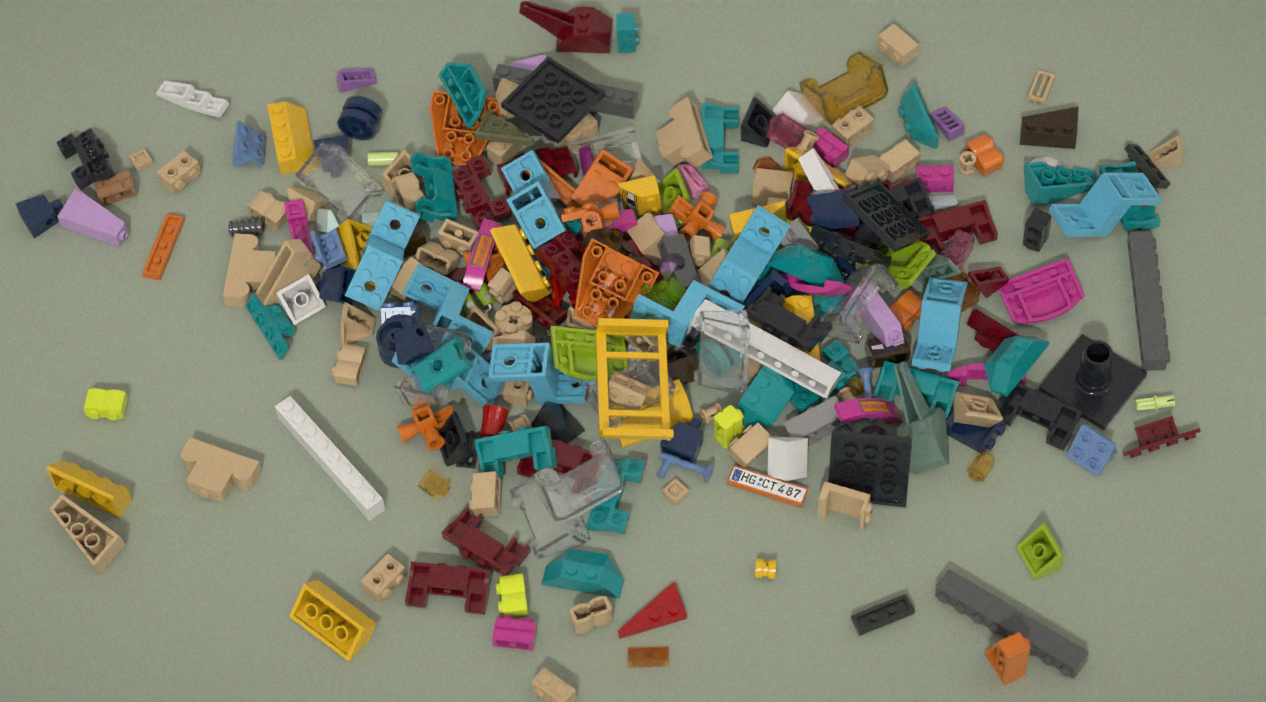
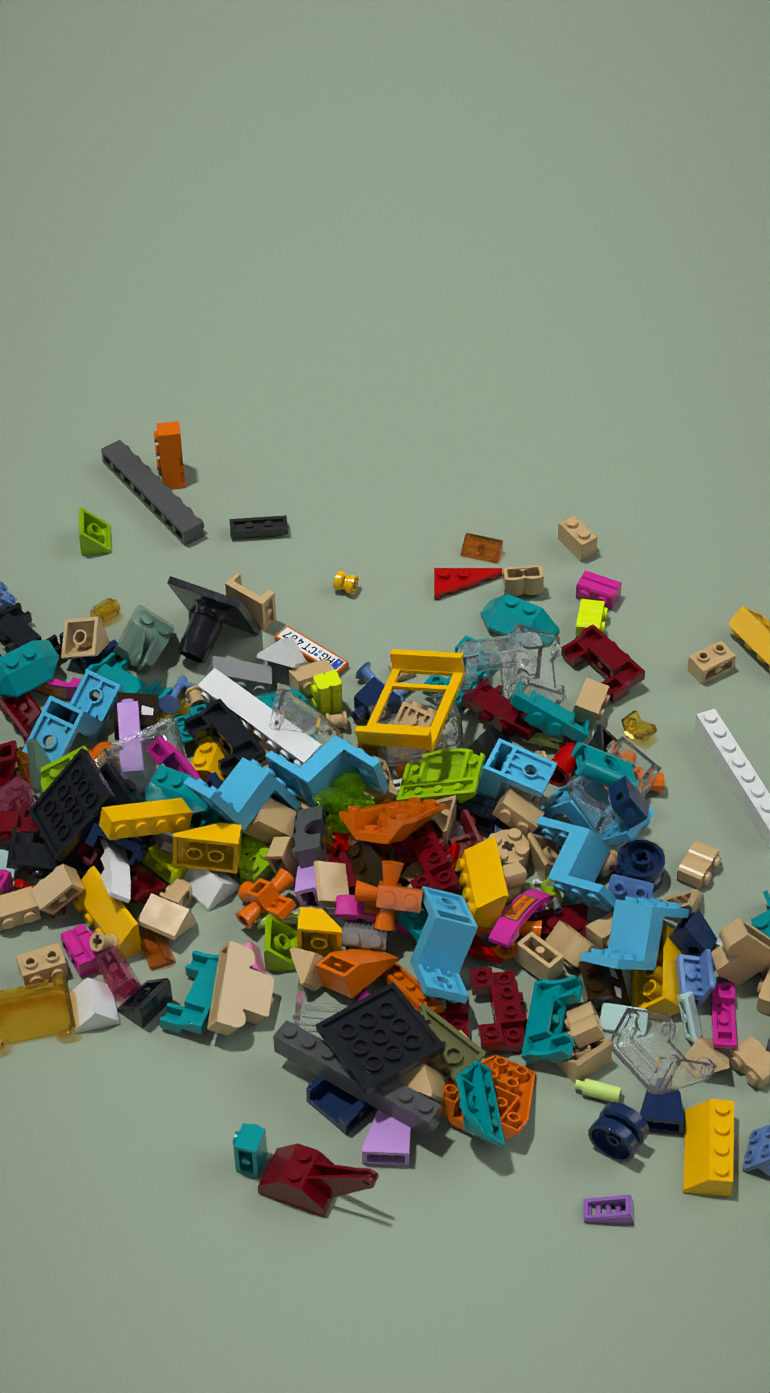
camera: 165 degrees left, 10 degrees down
(448, 581) = (649, 640): dark red bracket -> none
(813, 204) = (145, 818): none -> yellow brick
(875, 408) = (204, 653): dark pink slope -> none

